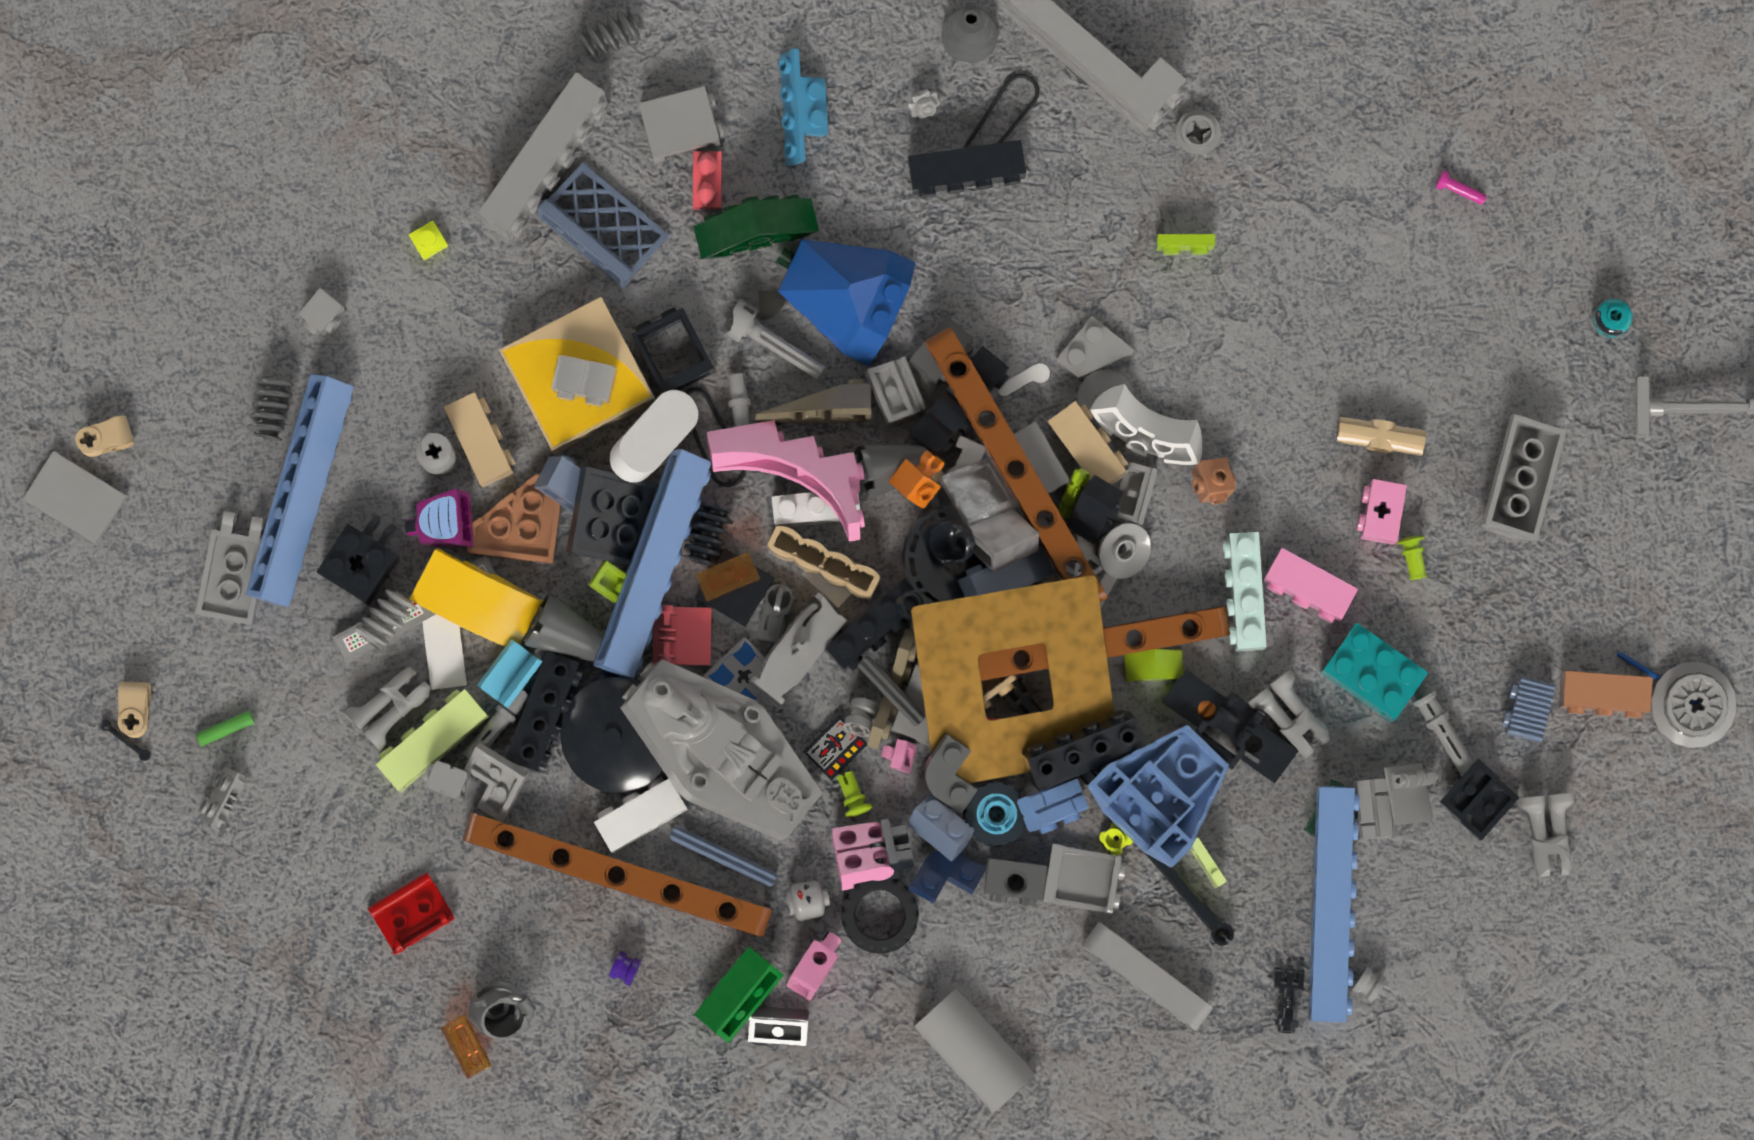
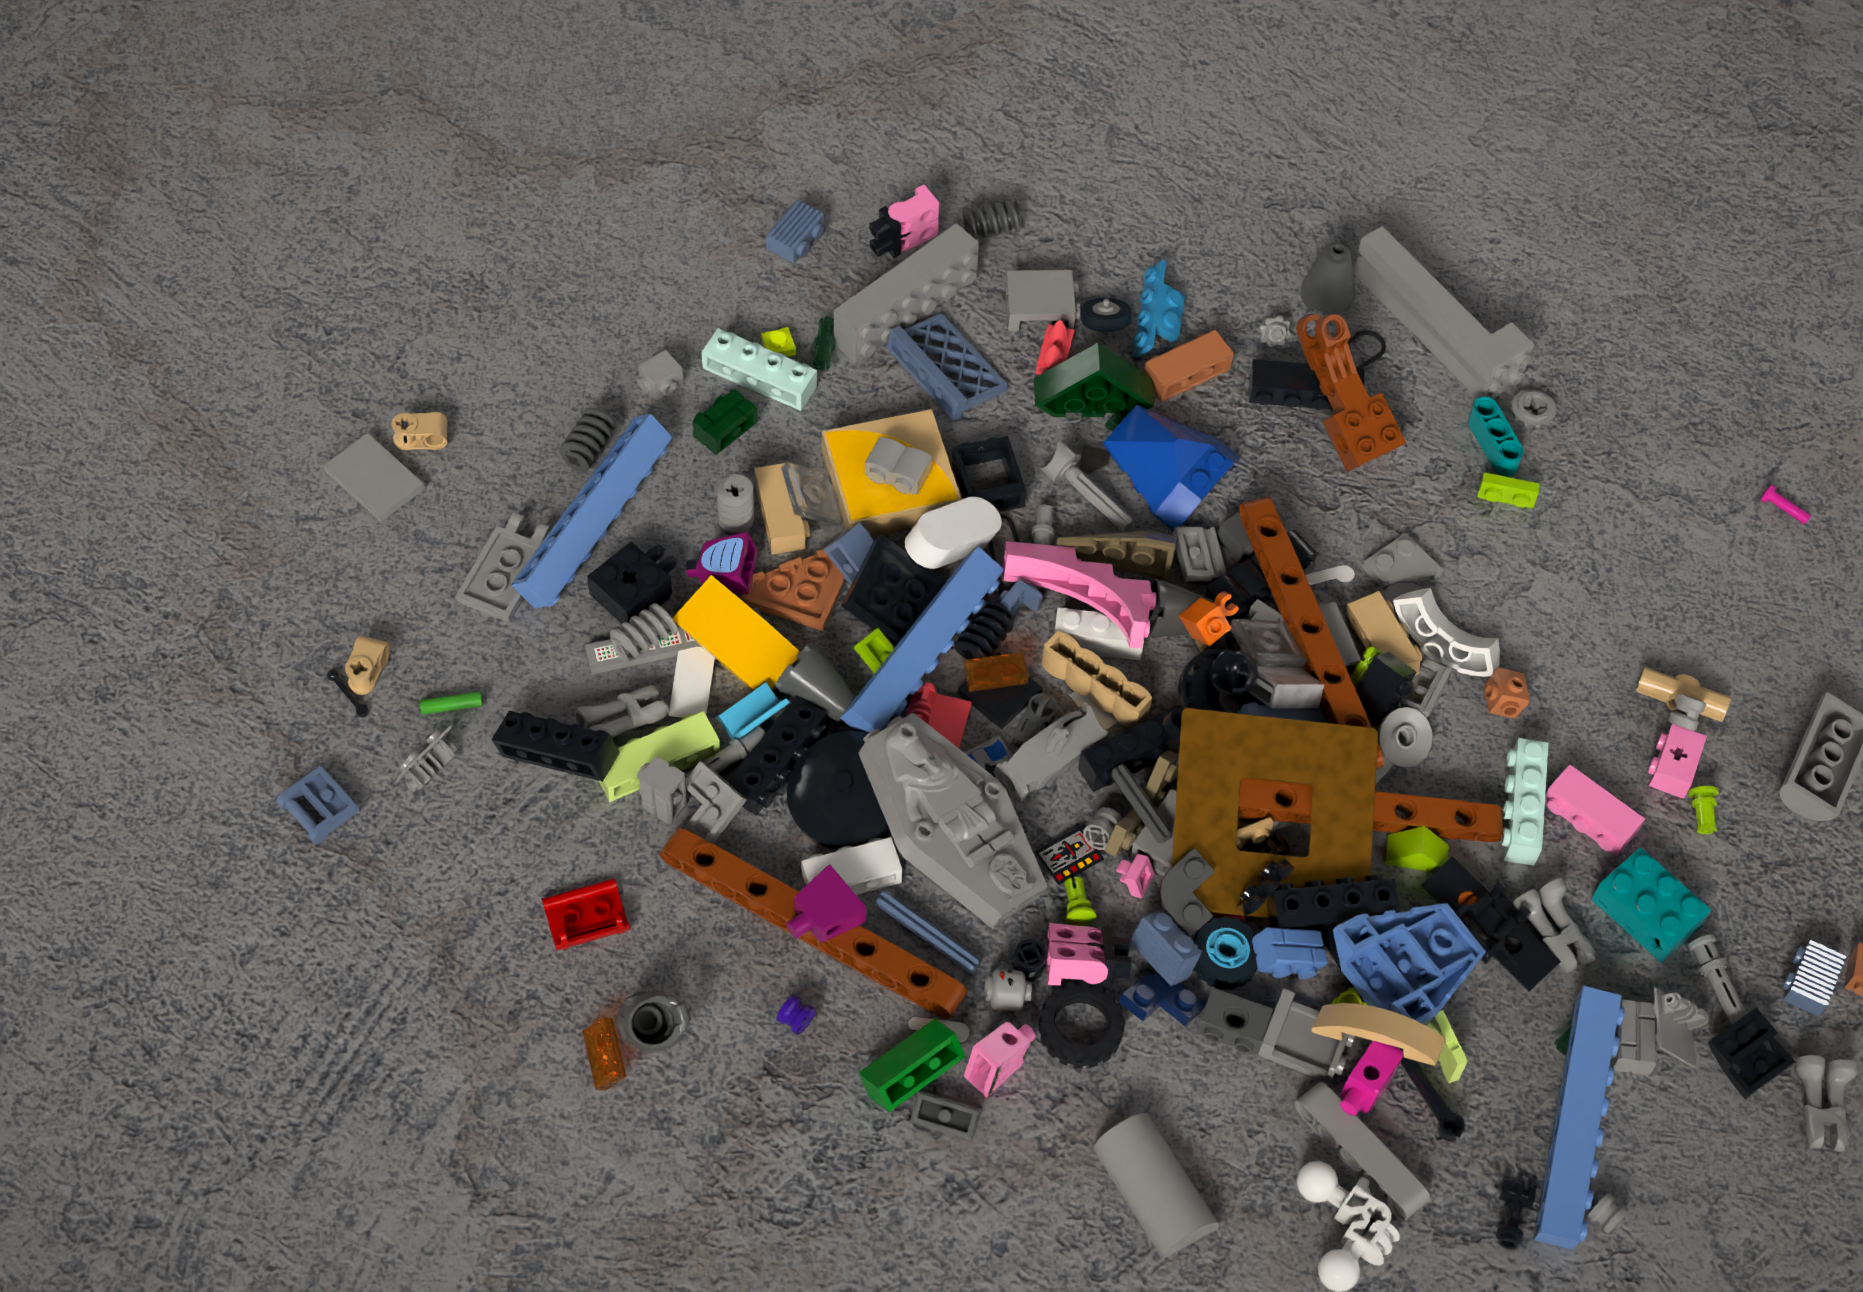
camera: 10 degrees right, 25 degrees down
(142, 857) = (325, 797): none -> sand blue plate
(338, 760) = (556, 745): none -> black brick
(399, 351) = (724, 421): none -> dark green brick
(411, 100) = (795, 231): none -> sand blue brick
(417, 280) = (759, 369): none -> light aqua brick
(474, 231) = (824, 343): none -> clear green pin
(506, 420) = (812, 494): none -> clear tile
(521, 70) = (905, 224): none -> bright pink hips
(627, 870) = (826, 907): none -> magenta torso
(724, 492) = (1021, 594): none -> sand blue bracket
(749, 127) = (1105, 314): none -> black wheel
(770, 944) = (959, 1028): none -> white sticker
(820, 864) = (1029, 965): none -> black wheel
(843, 168) = (1188, 365): none -> nougat brick
(1020, 753) = (1272, 875): none -> black plate
(1026, 206) = (1360, 424): none -> dark orange brick
(1144, 872) = (1382, 1026): none -> tan slope
(1144, 1091) = (1340, 1267): none -> white piece
(1147, 905) = (1365, 1083): none -> dark pink torso
(1162, 165) = (1495, 436): none -> teal beam
(1384, 468) = (1692, 707): none -> light grey wheel

